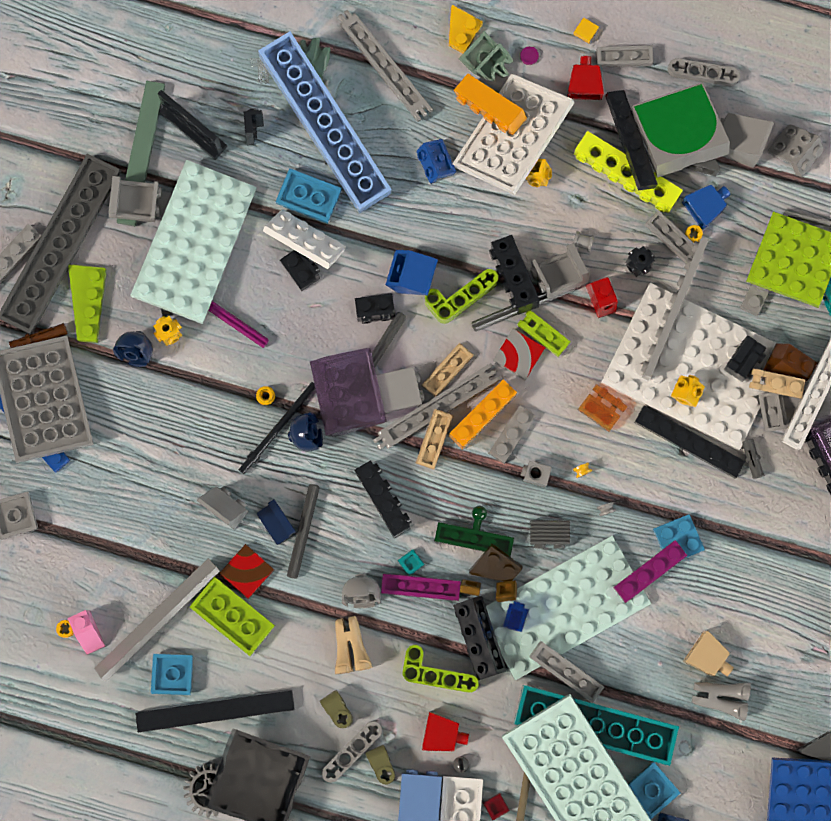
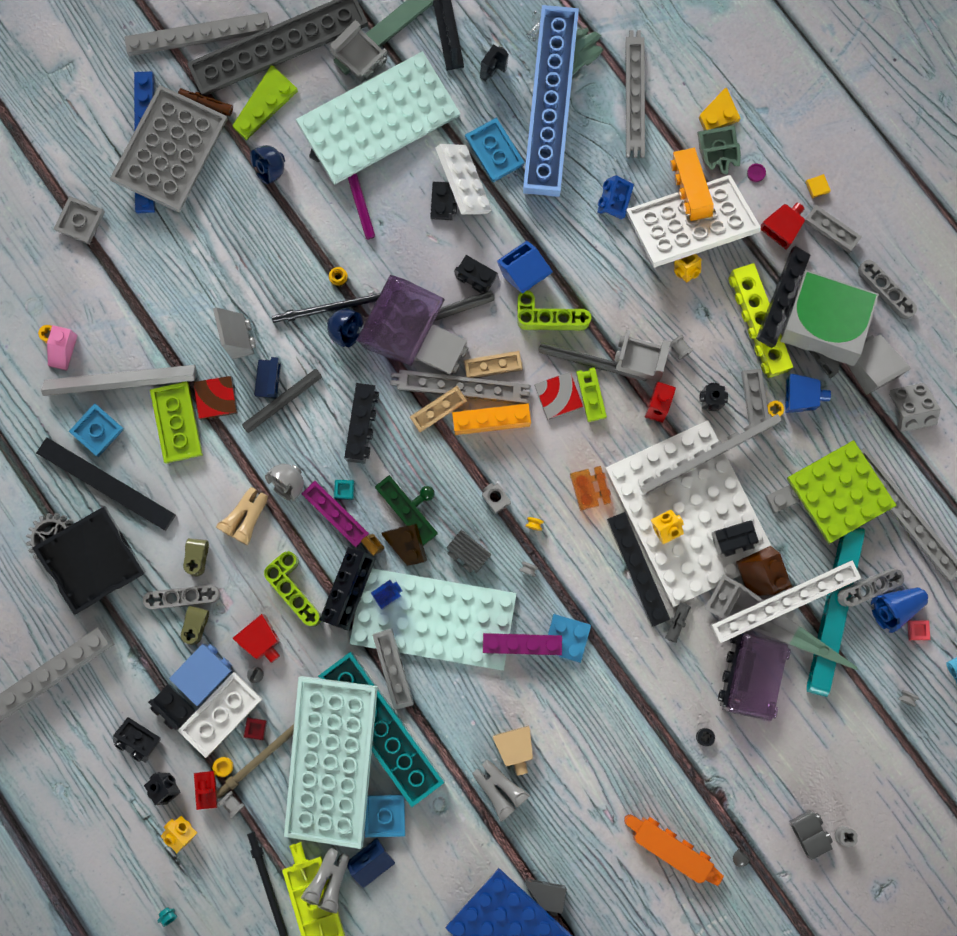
camera: 40 degrees right, 0 degrees up
(170, 336) = (304, 169): yellow brick -> none
(506, 591) = (398, 569): pearl gold tile -> none
(511, 434) = (502, 453): light grey plate -> none
(515, 275) = (604, 331): black brick -> none
(777, 384) = (744, 577): tan plate -> none

